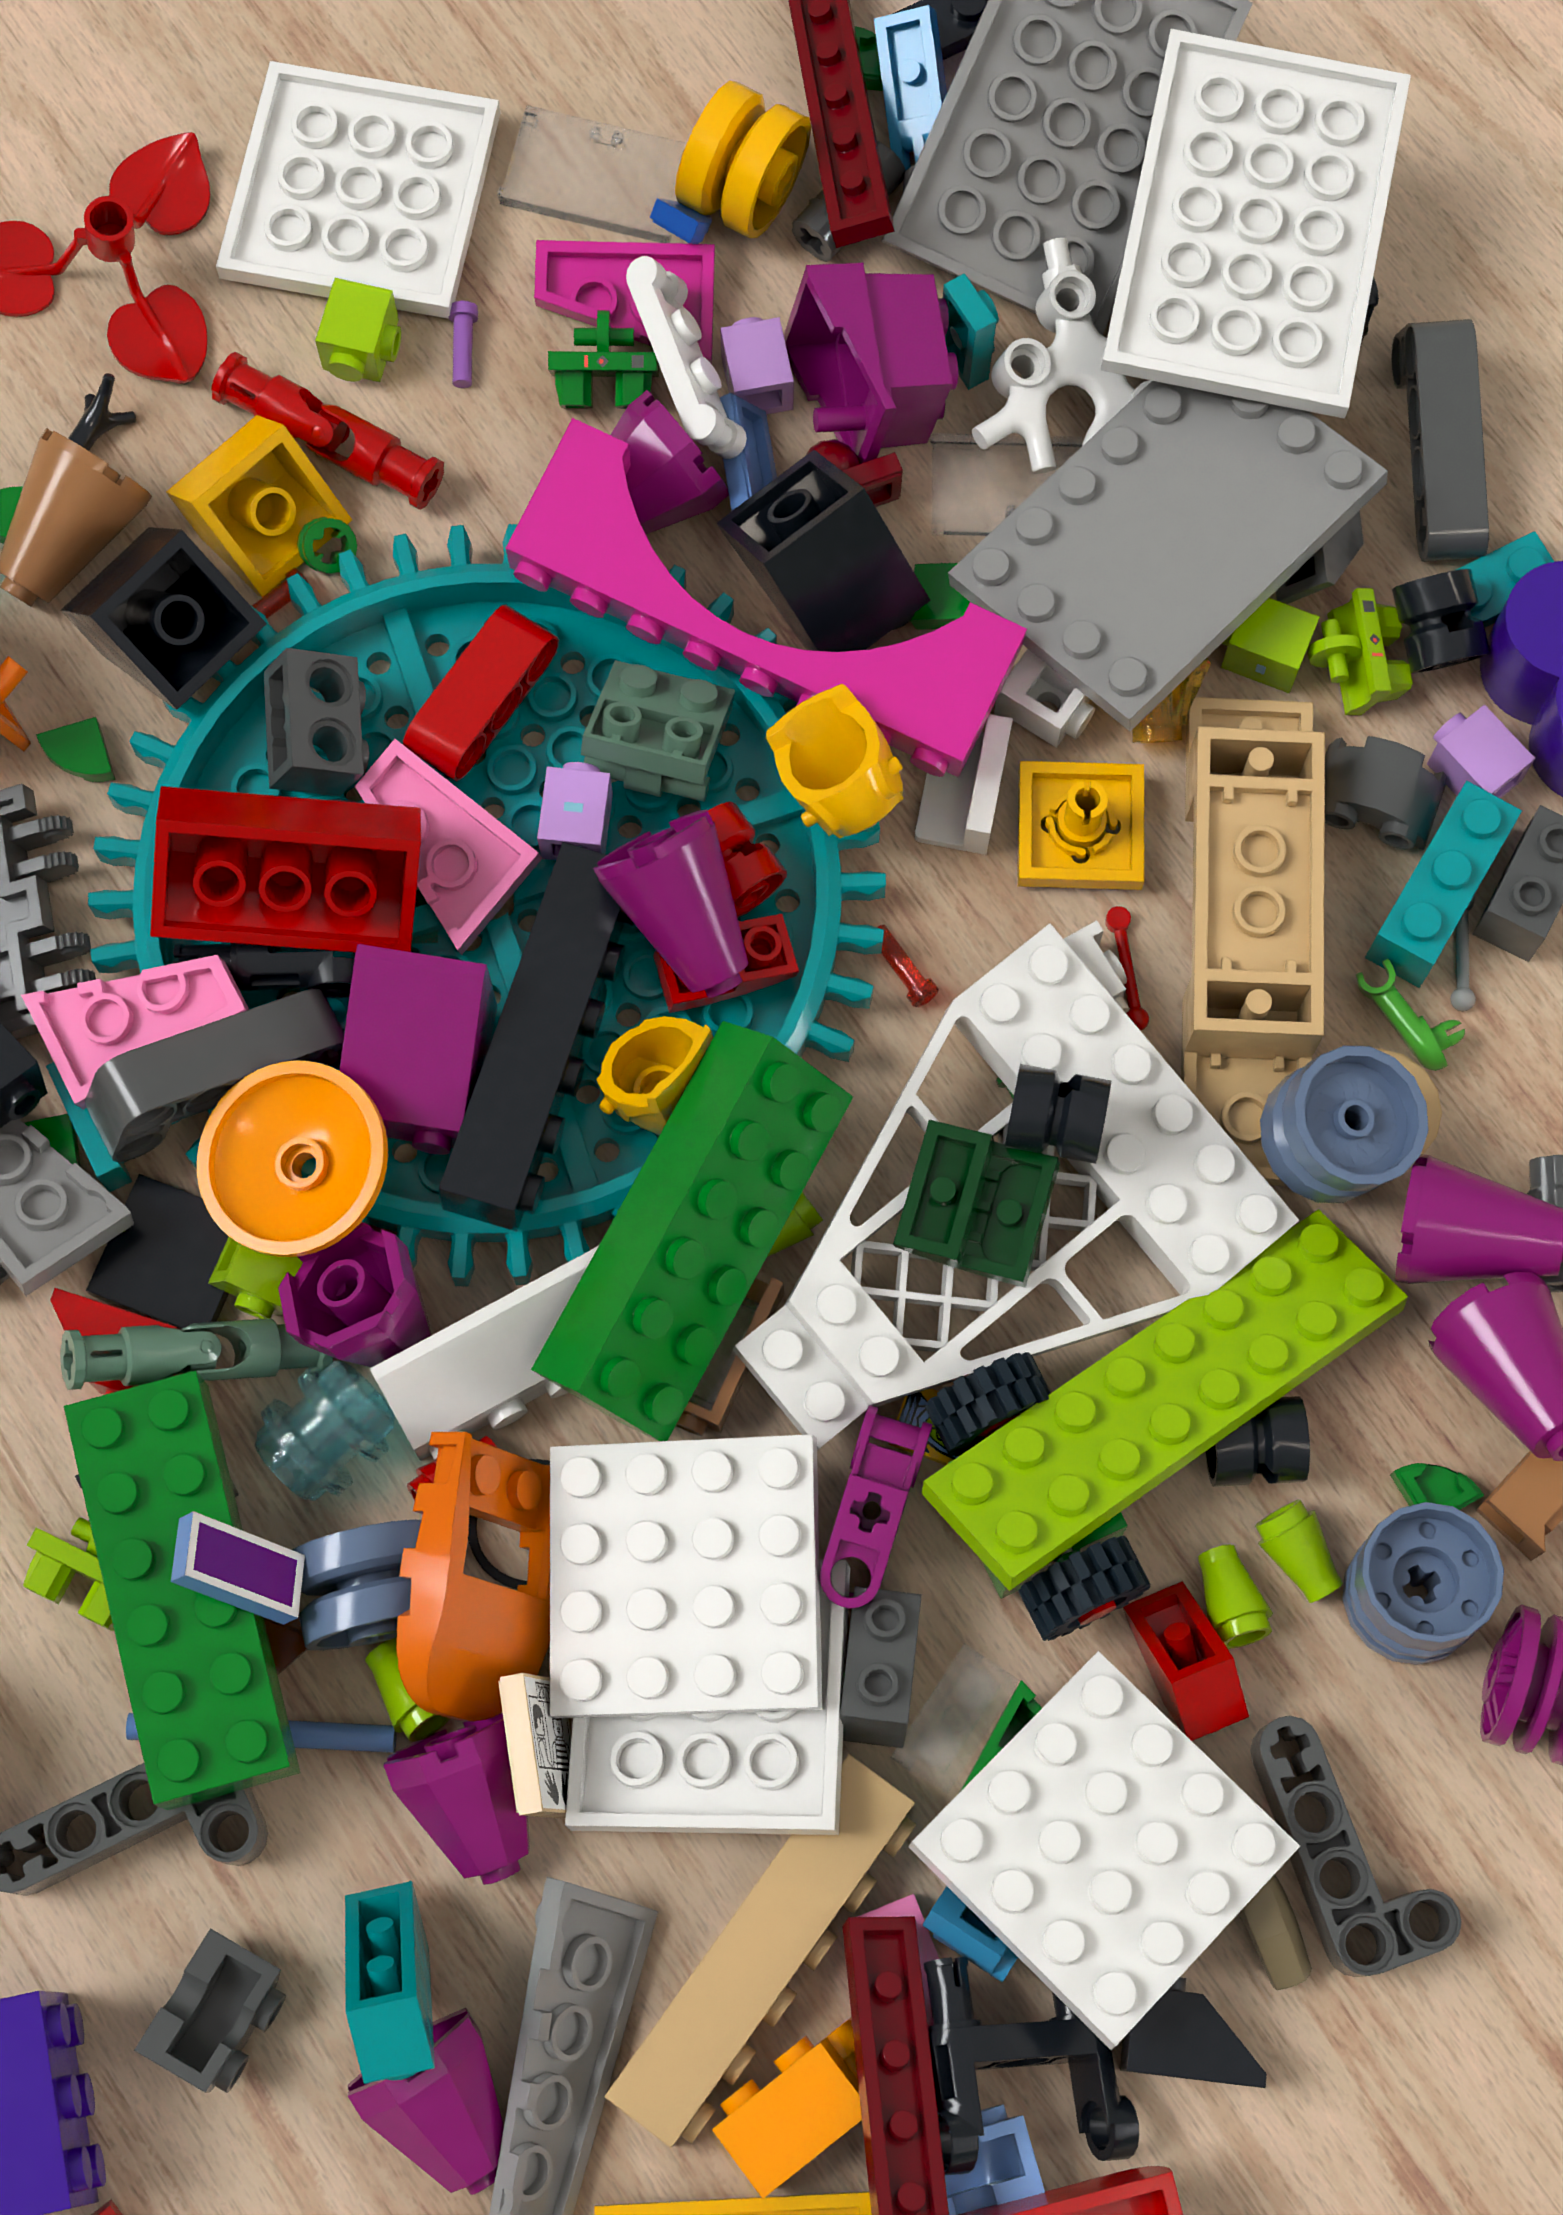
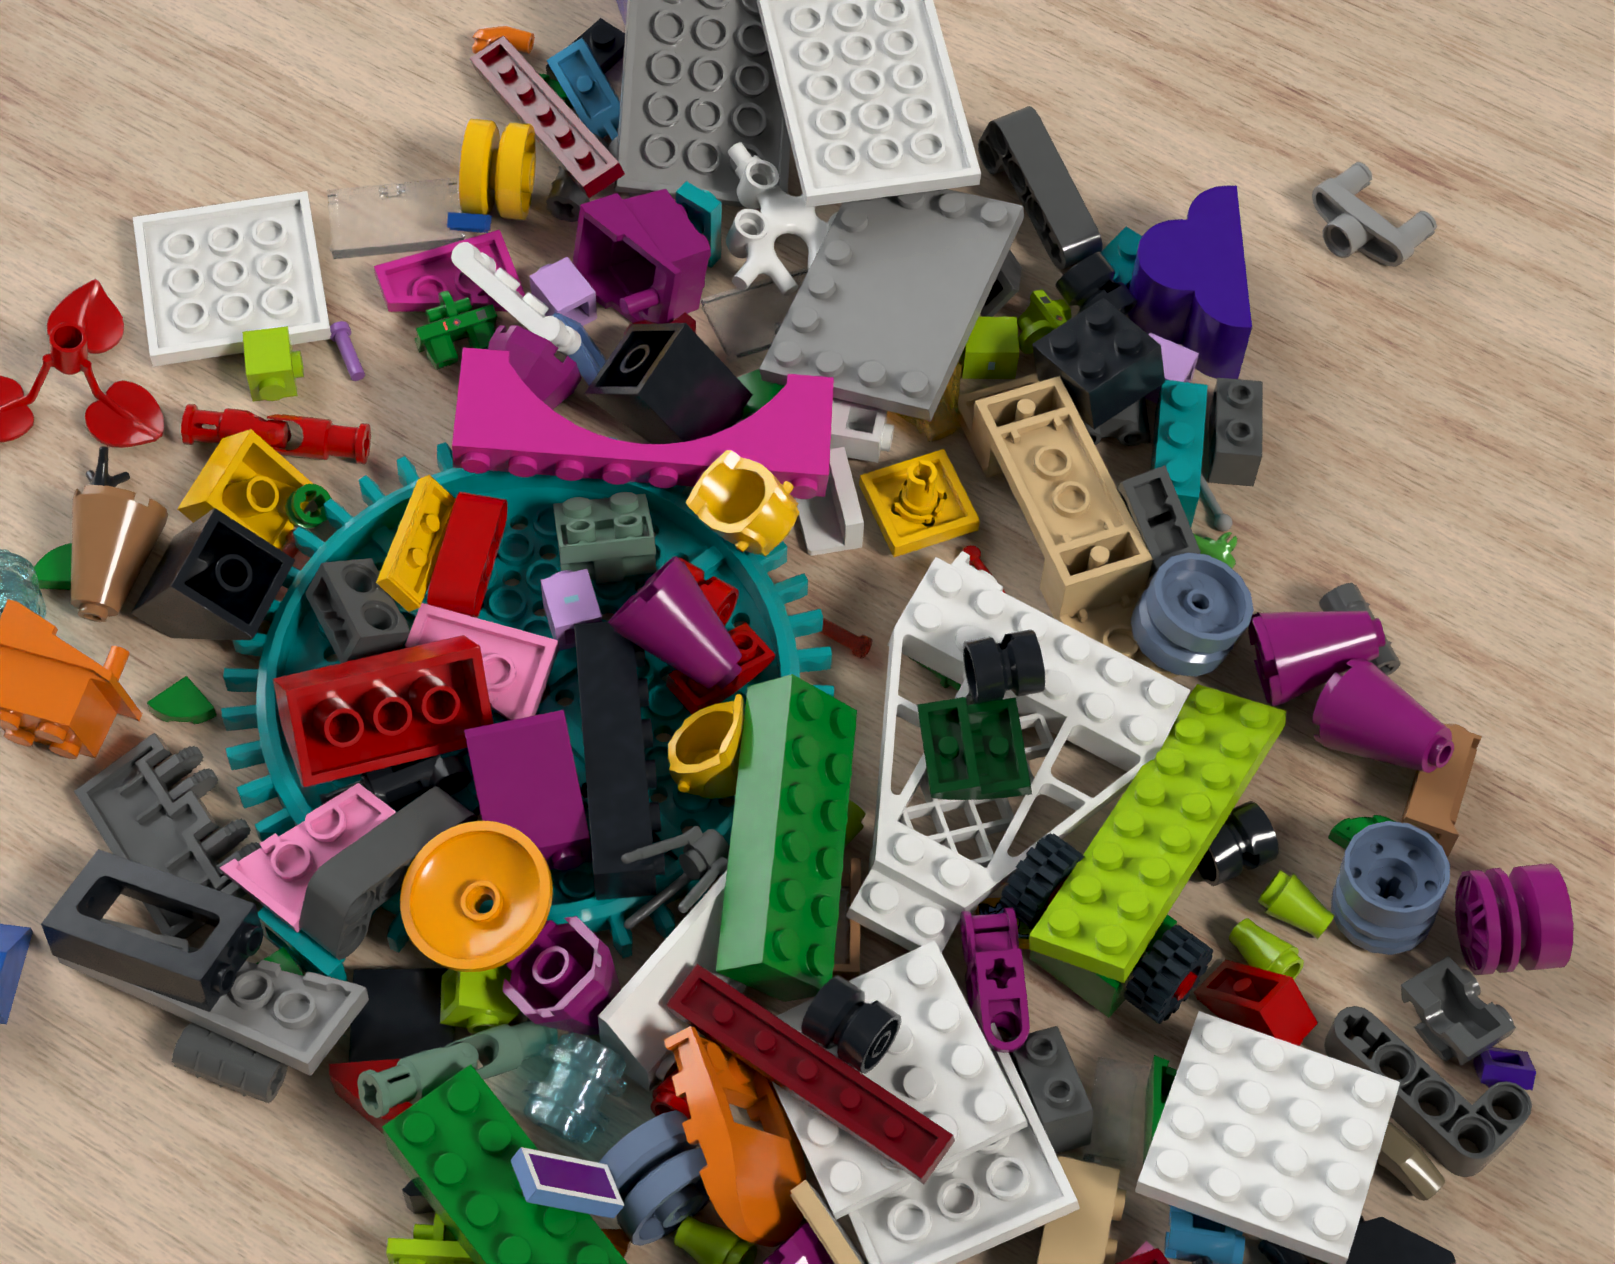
camera: 25 degrees left, 15 degrees down
(420, 657) = (417, 544): none -> yellow tile
(583, 1213) = (702, 857): none -> dark grey plant
(588, 1543) = (811, 1074): none -> dark red plate
(659, 1511) = (857, 1028): none -> black wheel
(1357, 982) = (1158, 516): none -> dark grey brick
(1389, 730) = (1101, 361): none -> black brick
(1427, 1773) = (1452, 1013): none -> dark grey cylinder
(1456, 1866) = (1505, 1065): none -> dark purple plate

